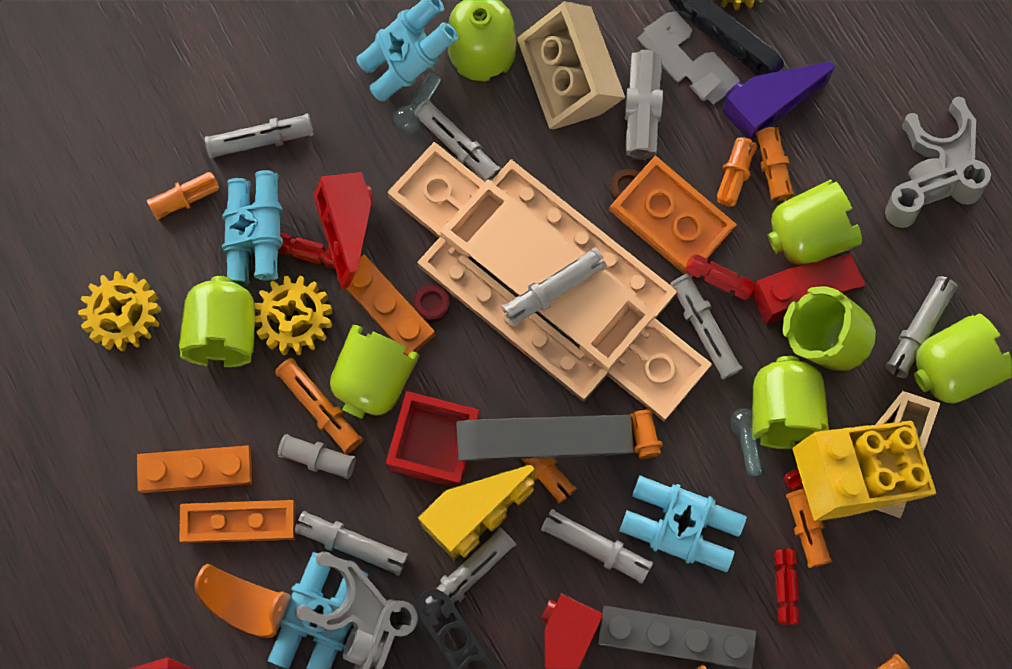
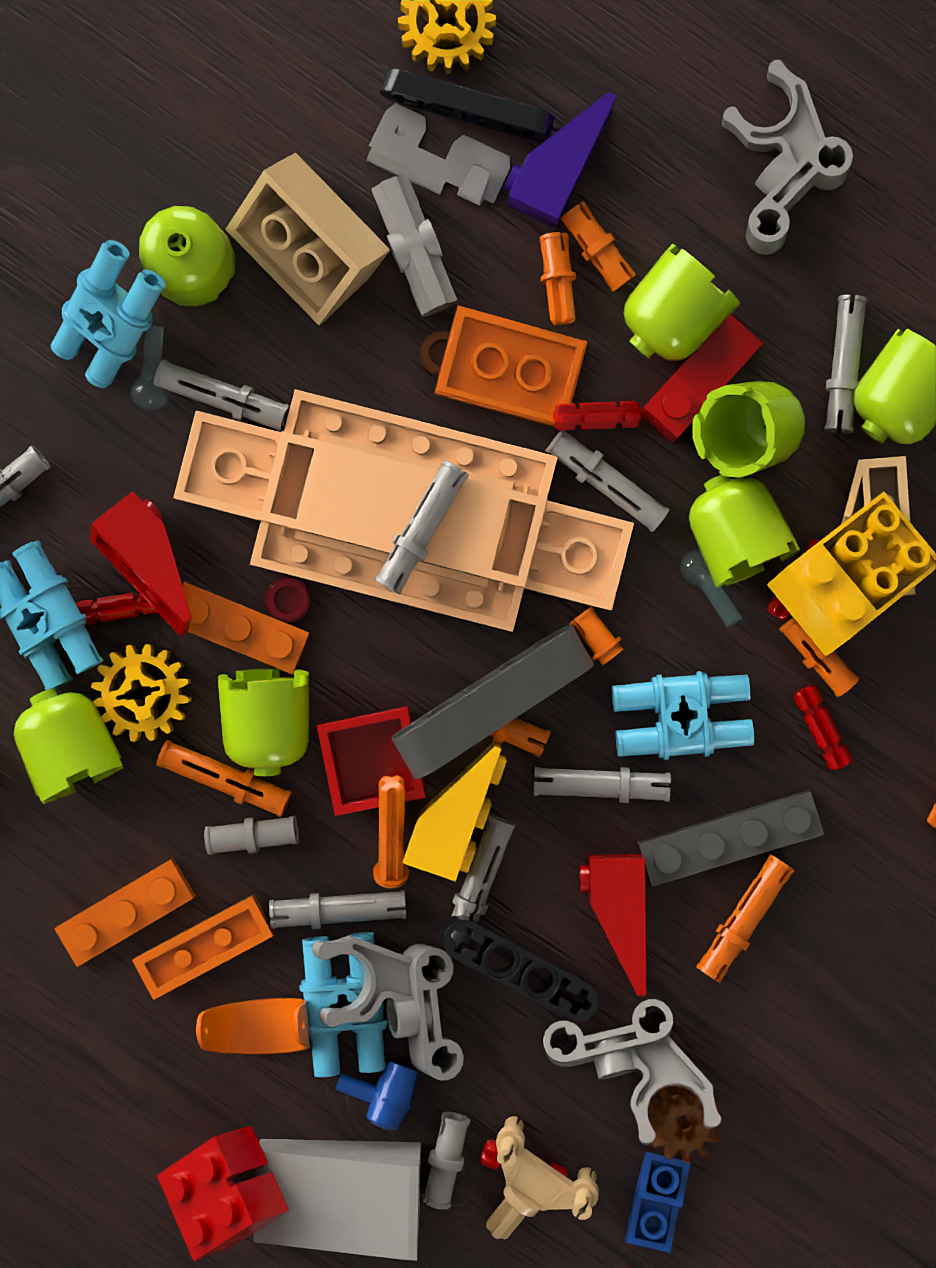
camera: 25 degrees left, 15 degrees up
(406, 531) = (390, 870): none -> orange axle

